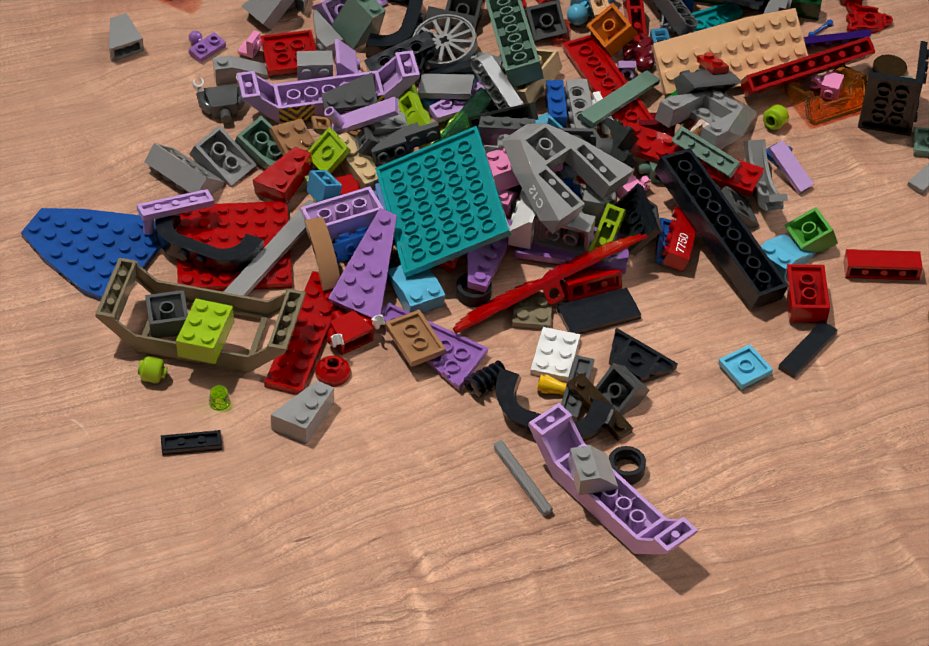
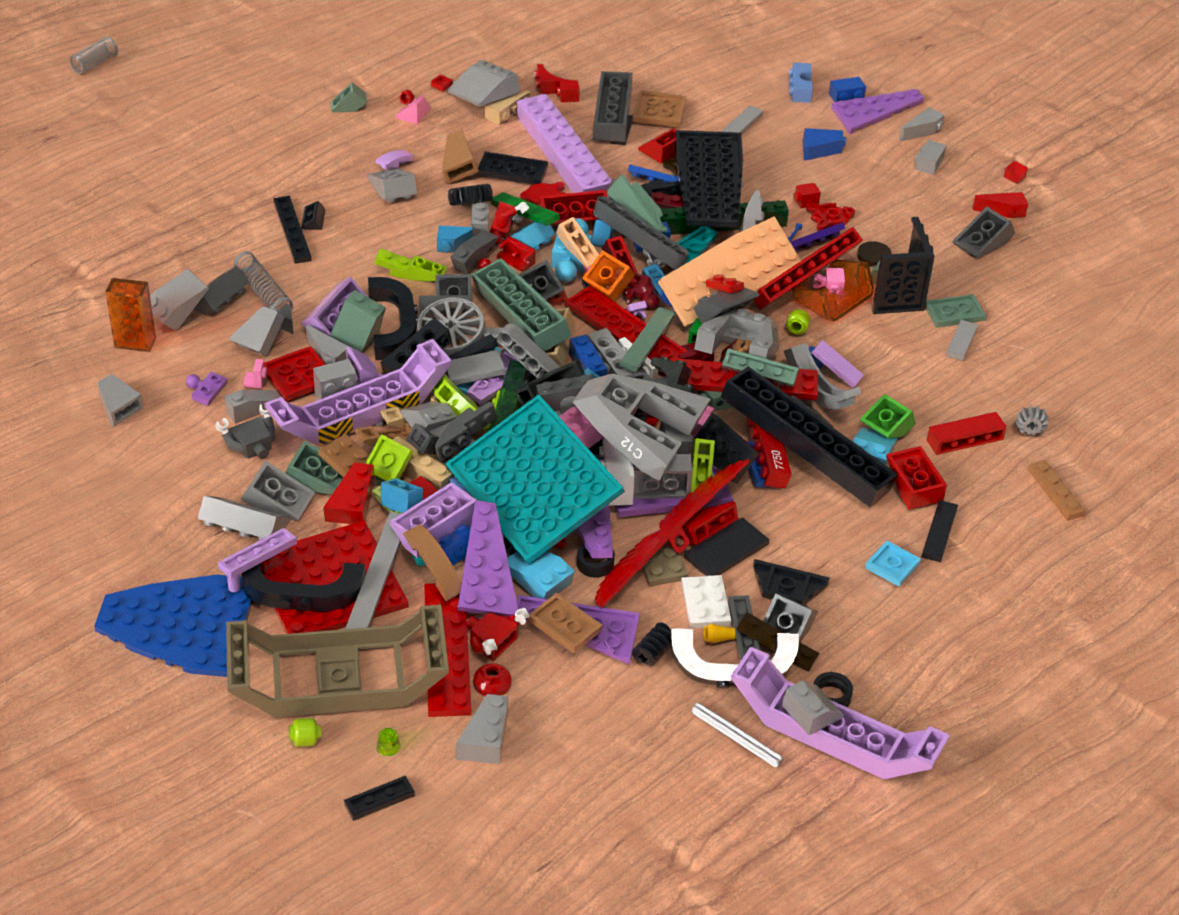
camera: 20 degrees left, 5 degrees down
(166, 313) = (299, 668): dark grey slope -> none
(205, 331) = (351, 674): lime brick -> none
(351, 95) = (388, 398): dark grey wing -> none
(363, 116) = (411, 415): lavender piece -> none

